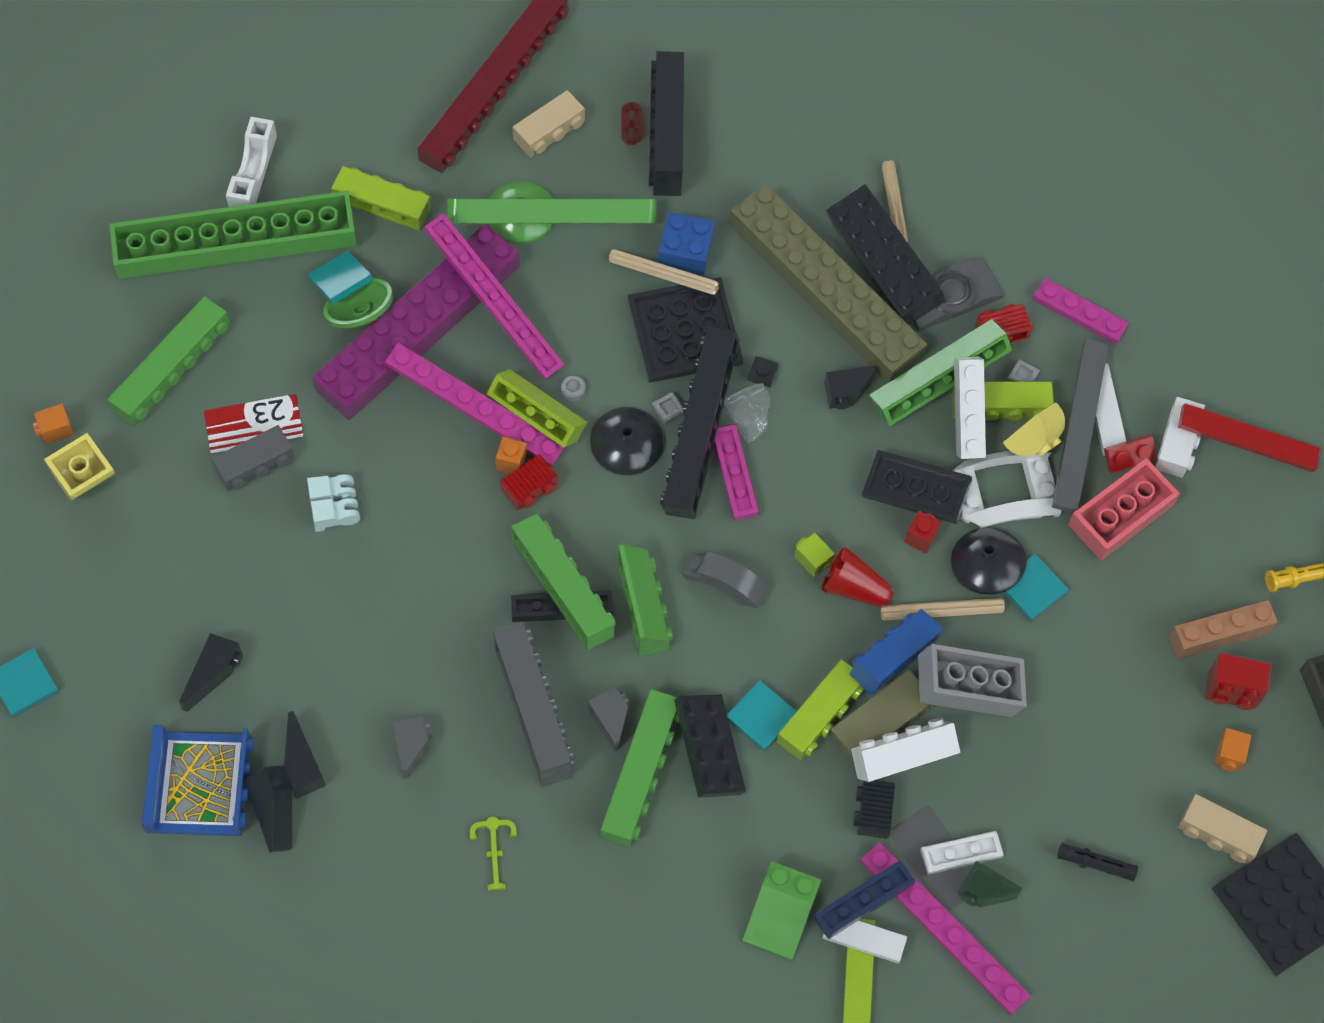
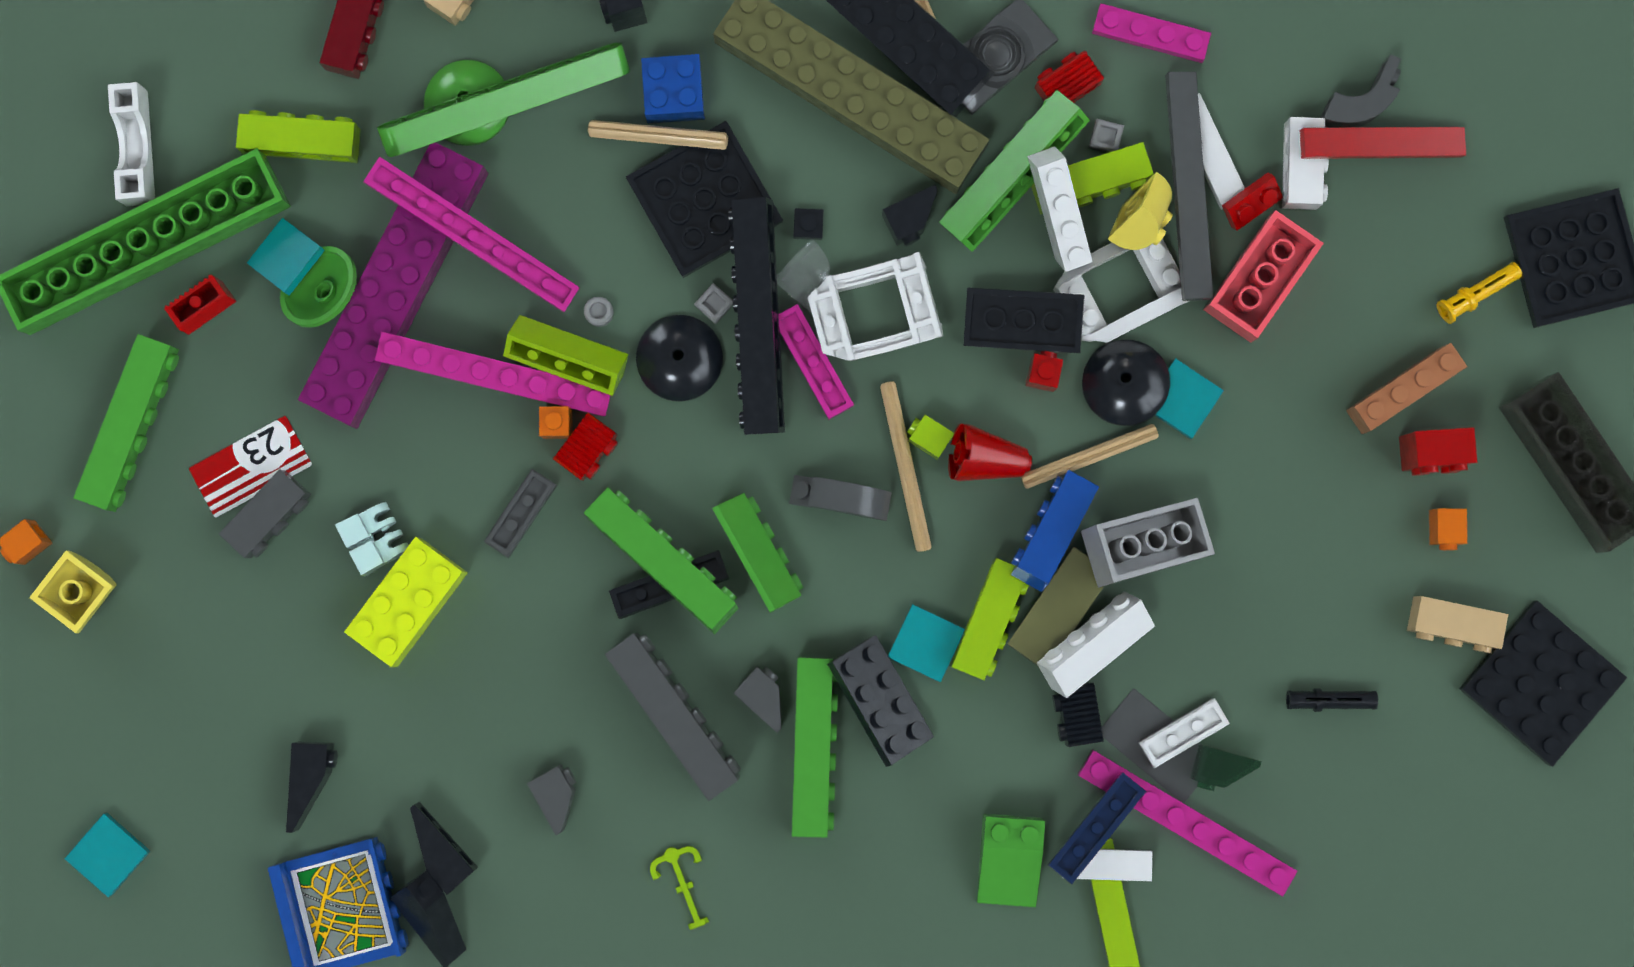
camera: 15 degrees left, 20 degrees up
(261, 290) = (200, 304): none -> red brick
(342, 556) = (405, 602): none -> neon yellow brick
(458, 519) = (520, 513): none -> dark grey tile
(786, 574) = (905, 466): none -> tan axle
(834, 443) = (916, 299): none -> white wedge
(1246, 408) = (1356, 111): none -> dark grey arch

